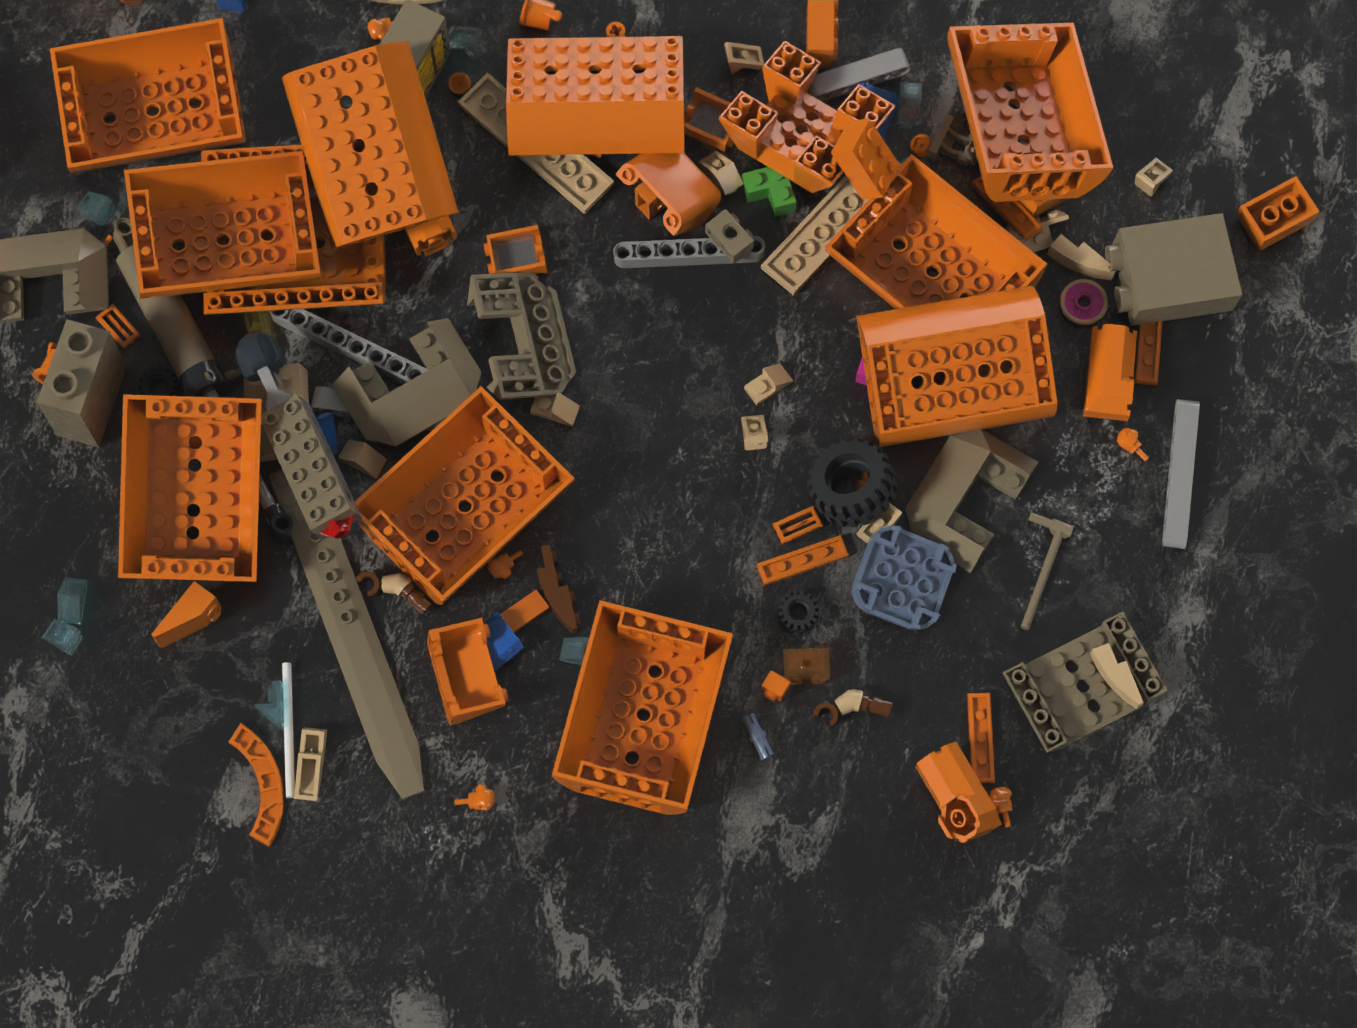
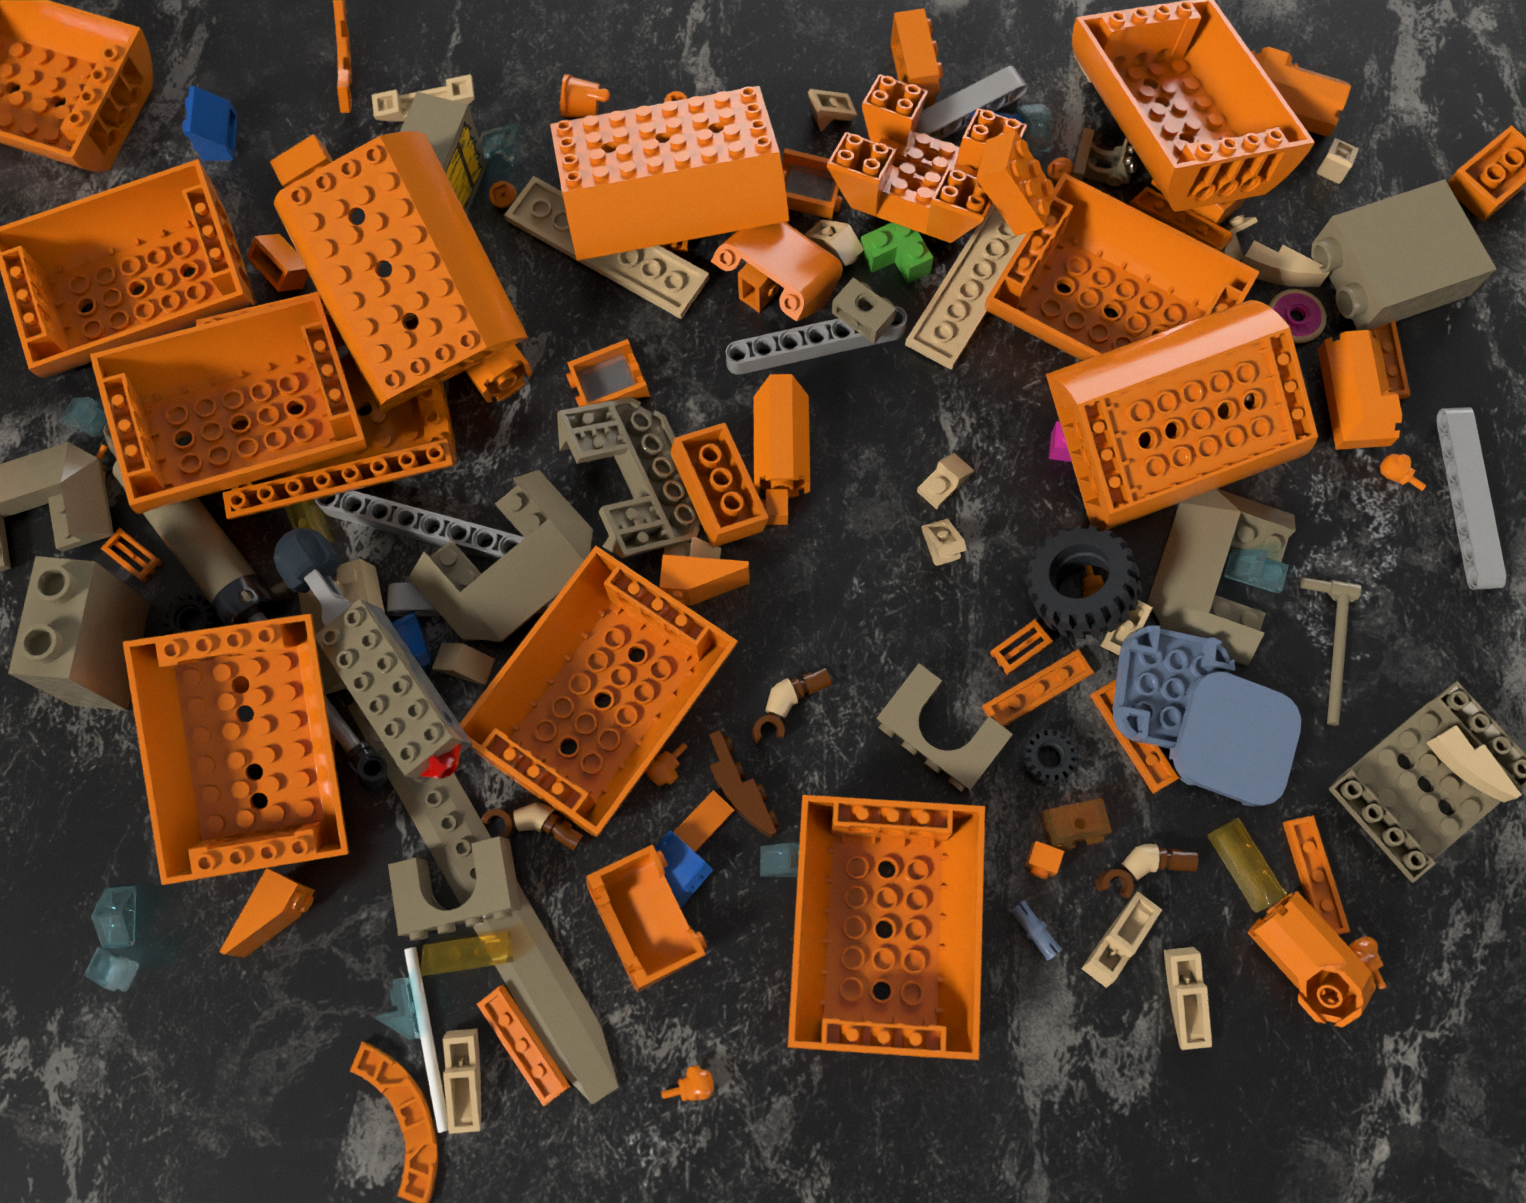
camera: 10 degrees left, 0 degrees up
(269, 109) = (278, 262): none -> orange brick
(302, 30) = (301, 160): none -> orange brick
(328, 674) = (466, 953): none -> clear yellow slope
(356, 635) = (493, 895): none -> dark tan arch
(359, 747) = (523, 1045): none -> orange tile
(557, 427) = (699, 579): none -> orange slope
(586, 355) = (718, 485): none -> orange brick
(606, 528) = (784, 696): none -> reddish brown piece
(628, 380) = (776, 506): none -> orange plate
(643, 327) = (781, 436): none -> orange brick
(692, 561) = (962, 765): none -> dark tan arch
(820, 755) = (1122, 939): none -> tan slope
(859, 806) = (1188, 997): none -> tan slope
(874, 627) = (1147, 758): none -> orange tile
(929, 718) = (1246, 865): none -> clear yellow slope
(943, 623) = (1237, 739): none -> sand blue tile
(996, 500) = (1256, 569): none -> clear light blue slope
(1128, 115) = (1311, 95): none -> orange brick

